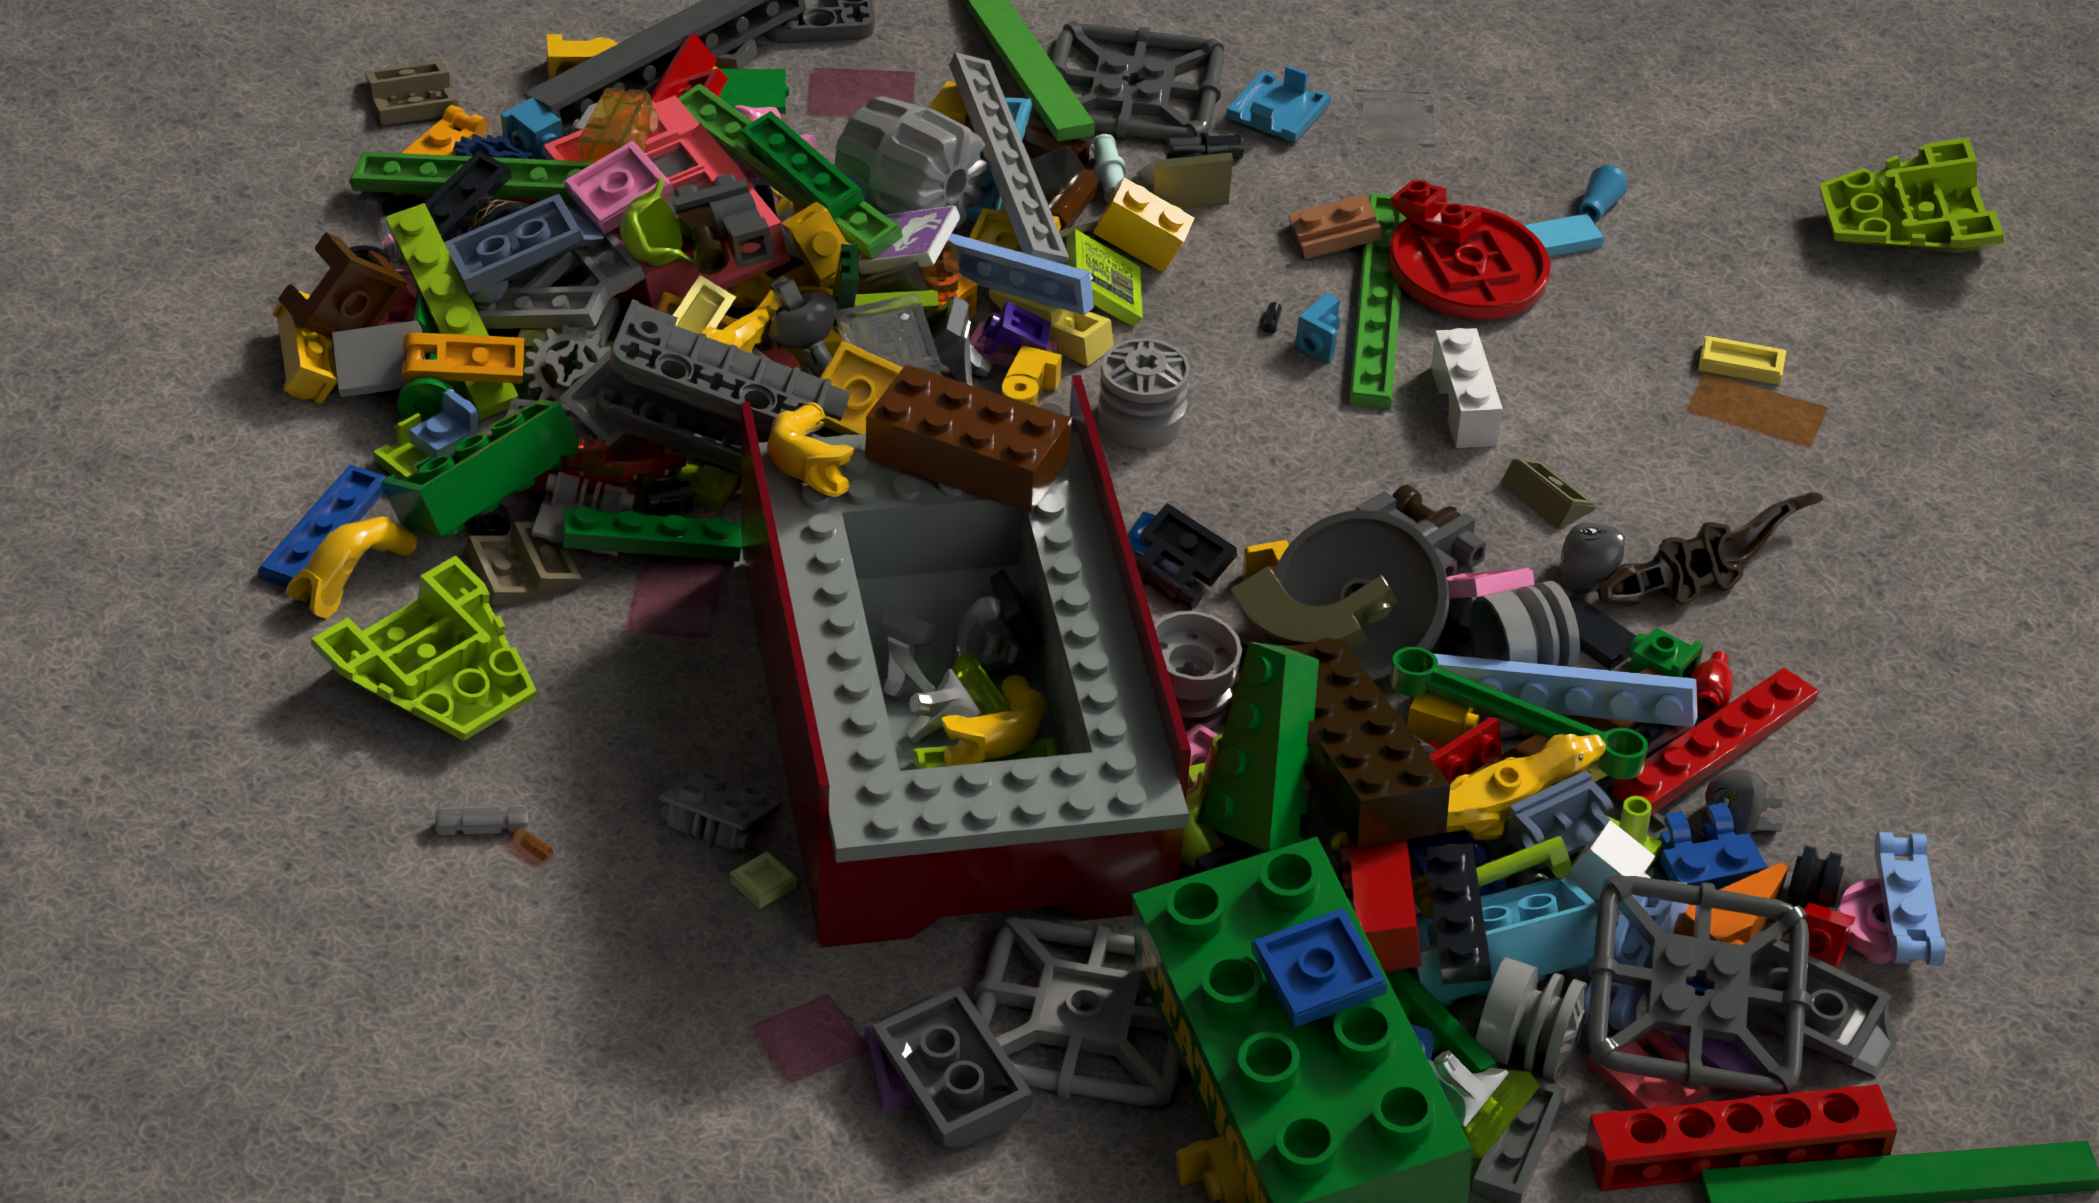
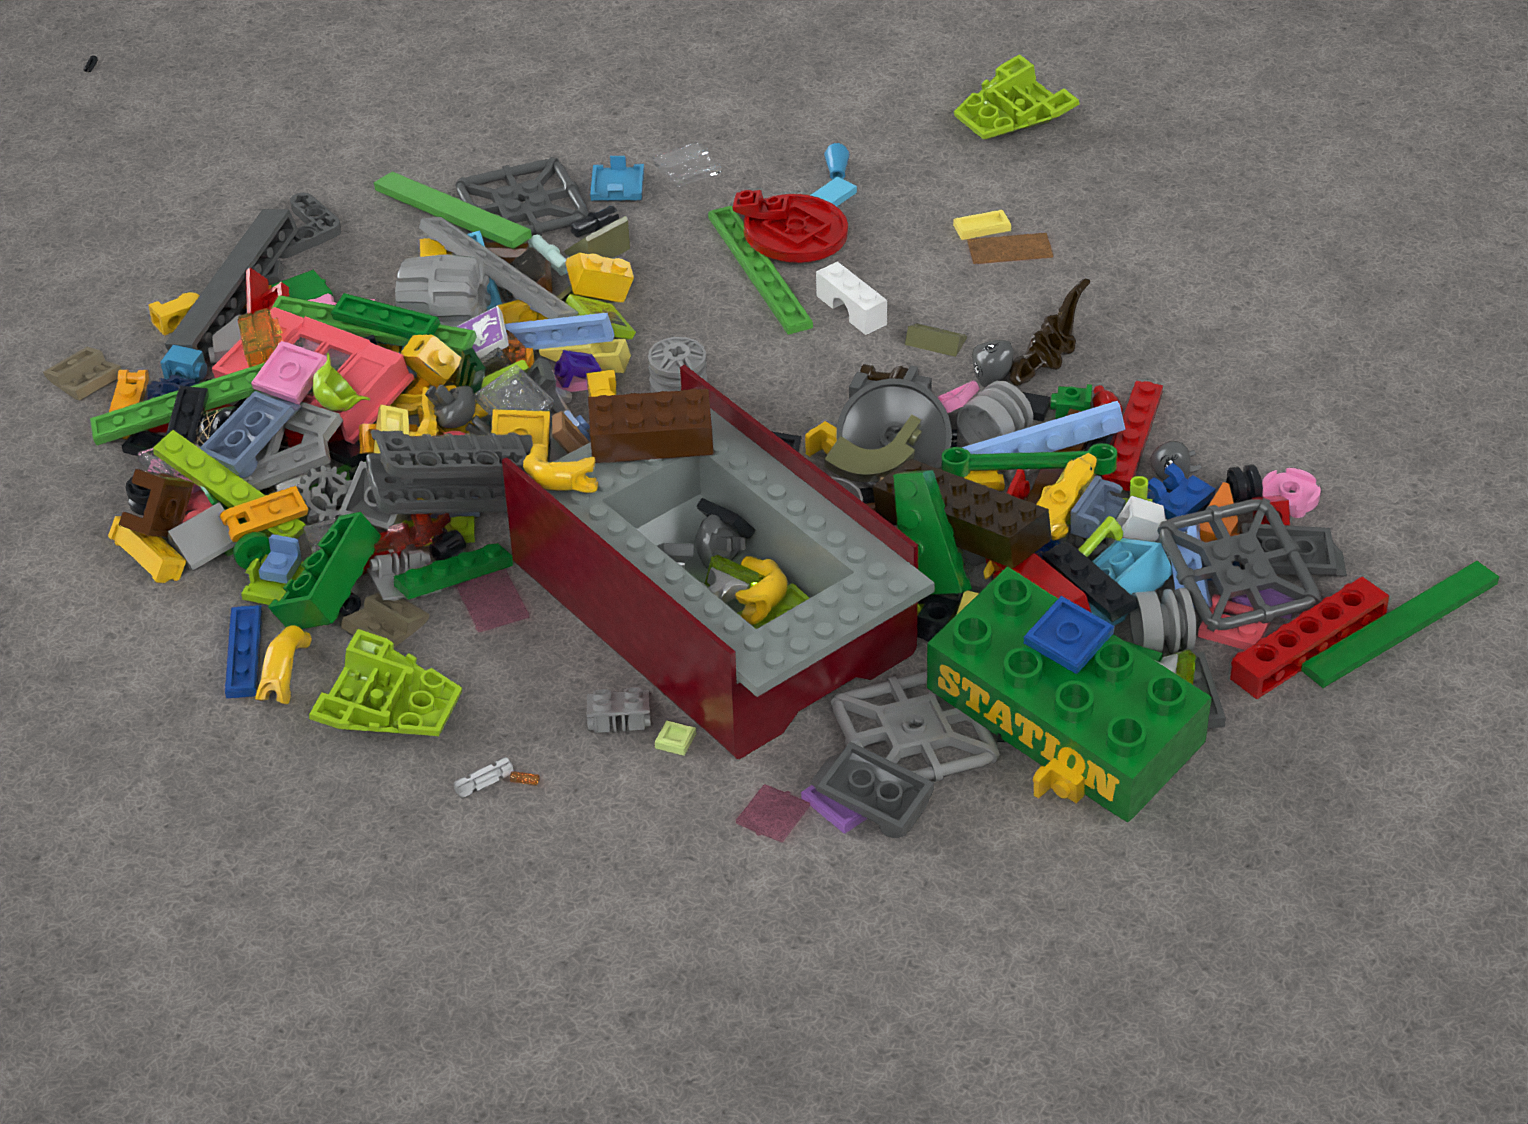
camera: 25 degrees left, 0 degrees up
(720, 212) = (373, 360): dark grey hips -> none
(851, 89) = (363, 267): clear pink piece -> none
(1272, 318) = (707, 302): black piece -> none
(1319, 328) = (743, 300): dark azure bracket -> none
(1335, 226) = (705, 237): nougat plate -> none
(1908, 899) = (1299, 474): light blue plate -> none

